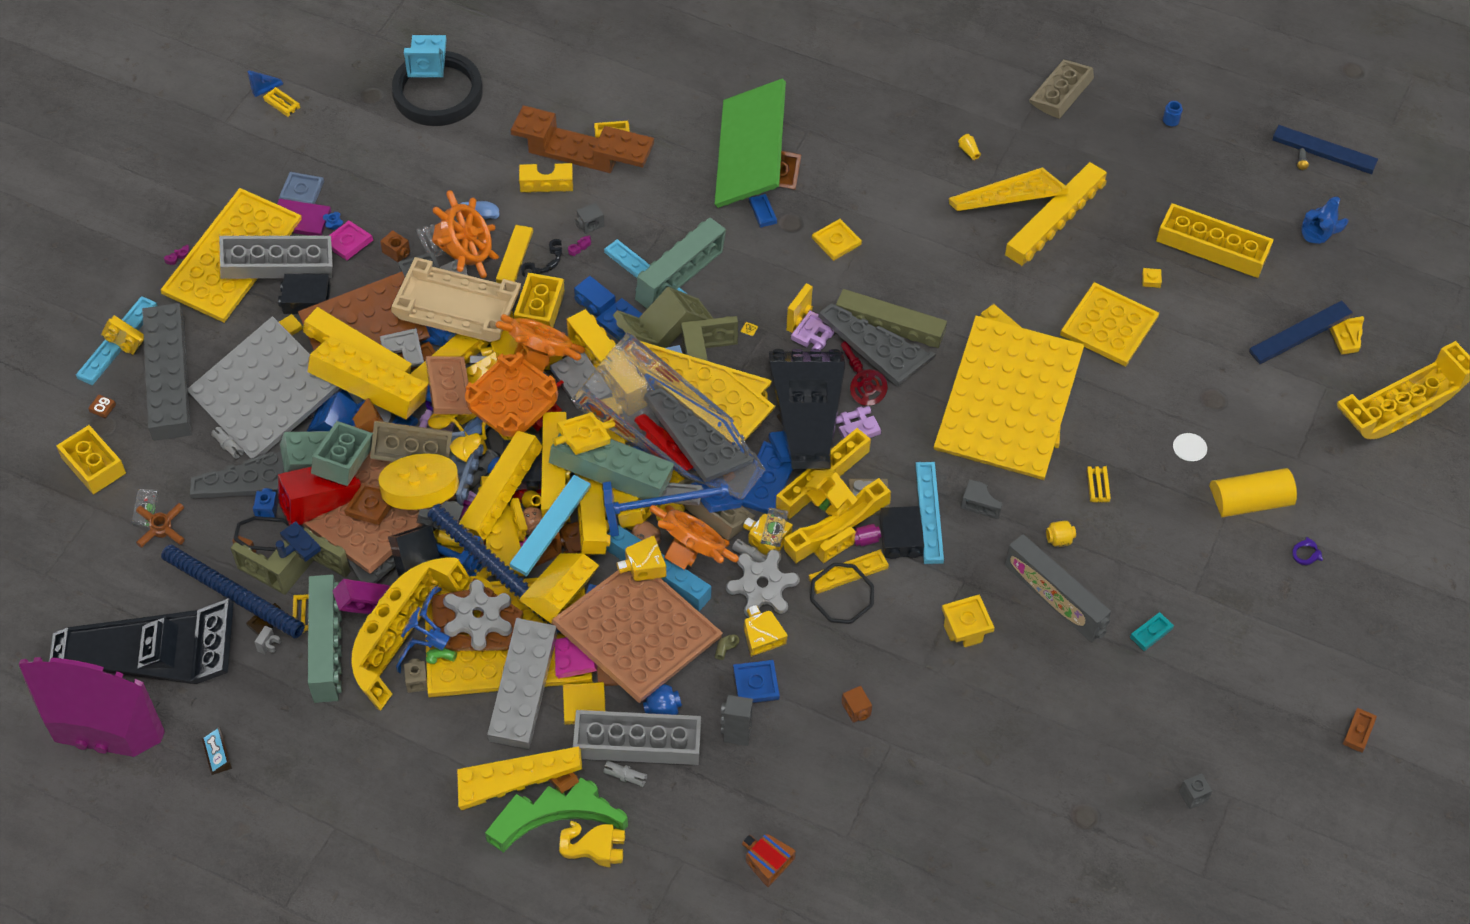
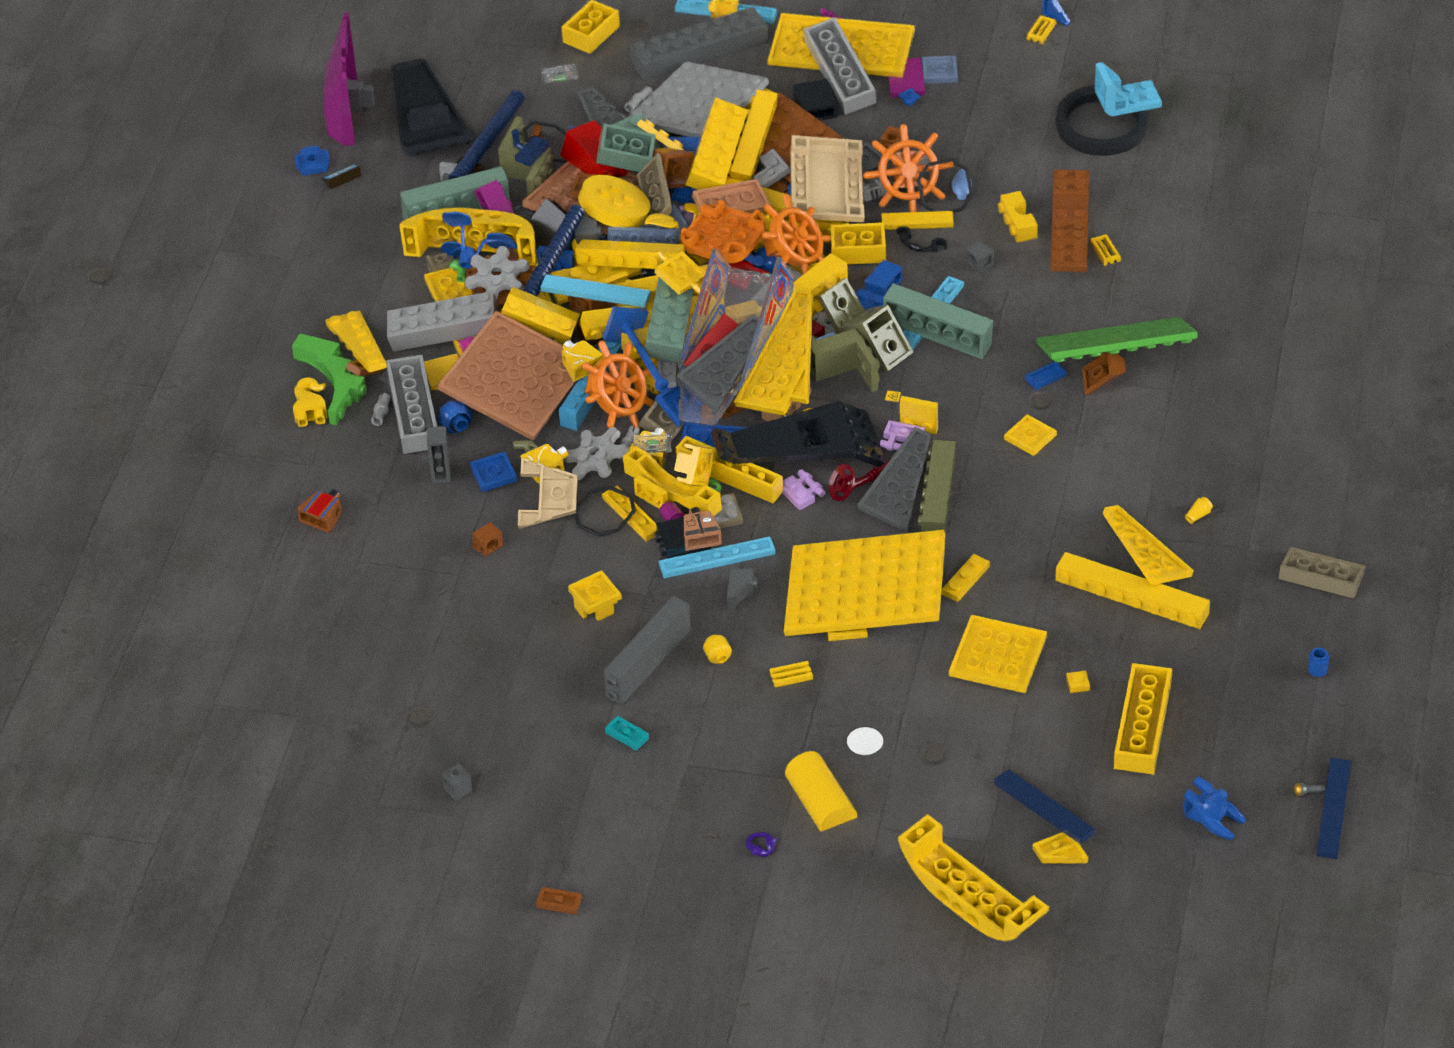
camera: 80 degrees right, 10 degrees down
(102, 406) = (653, 21): dark orange tile -> none
(160, 531) = (541, 84): dark orange bar -> none
(182, 788) = (308, 167): none -> blue plate
(329, 421) = (661, 135): none -> yellow plate
(349, 240) = (889, 111): dark pink plate -> none
(479, 223) = (940, 162): none -> black piece
(583, 243) = (942, 258): magenta piece -> none
(815, 628) = (556, 494): none -> tan wing
(913, 508) = (701, 530): none -> nougat torso

